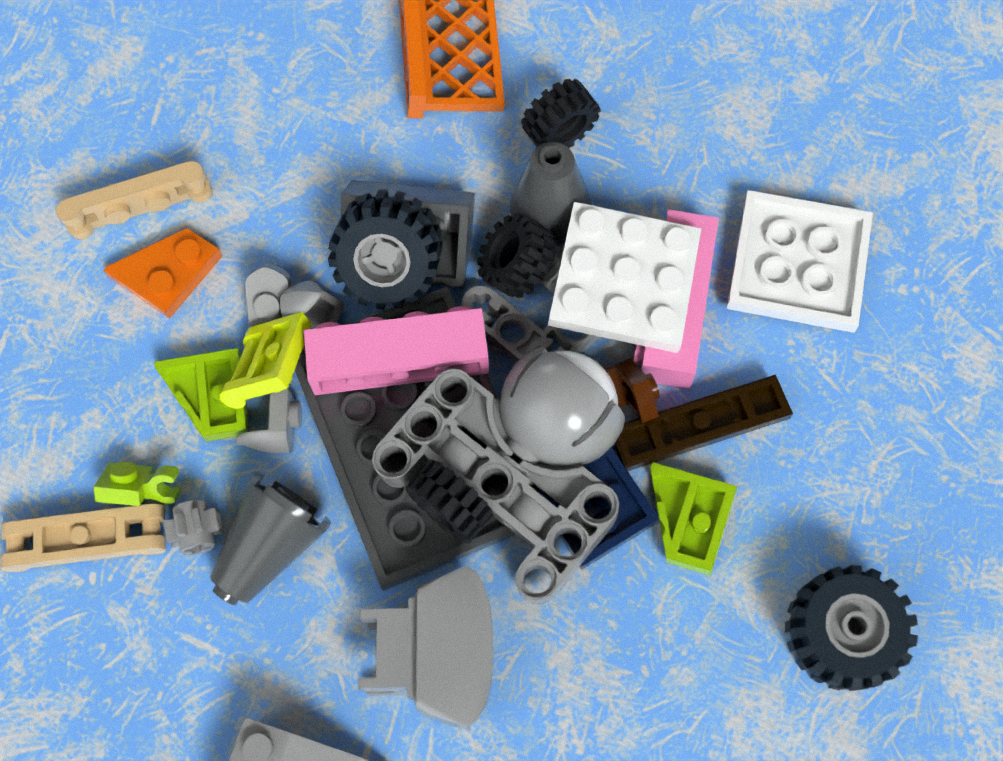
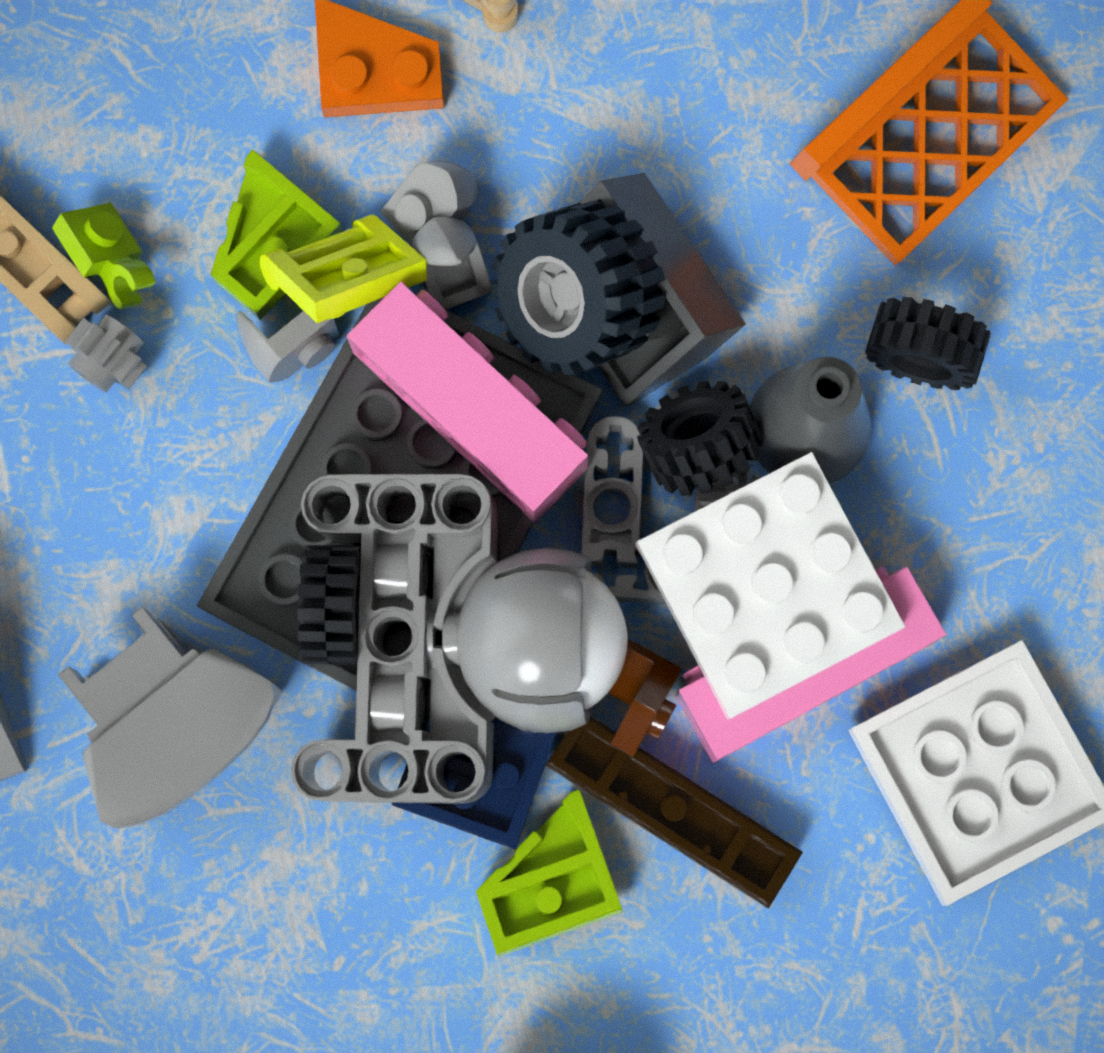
camera: 50 degrees right, 10 degrees up
(264, 539) = (154, 438): dark grey cone -> none

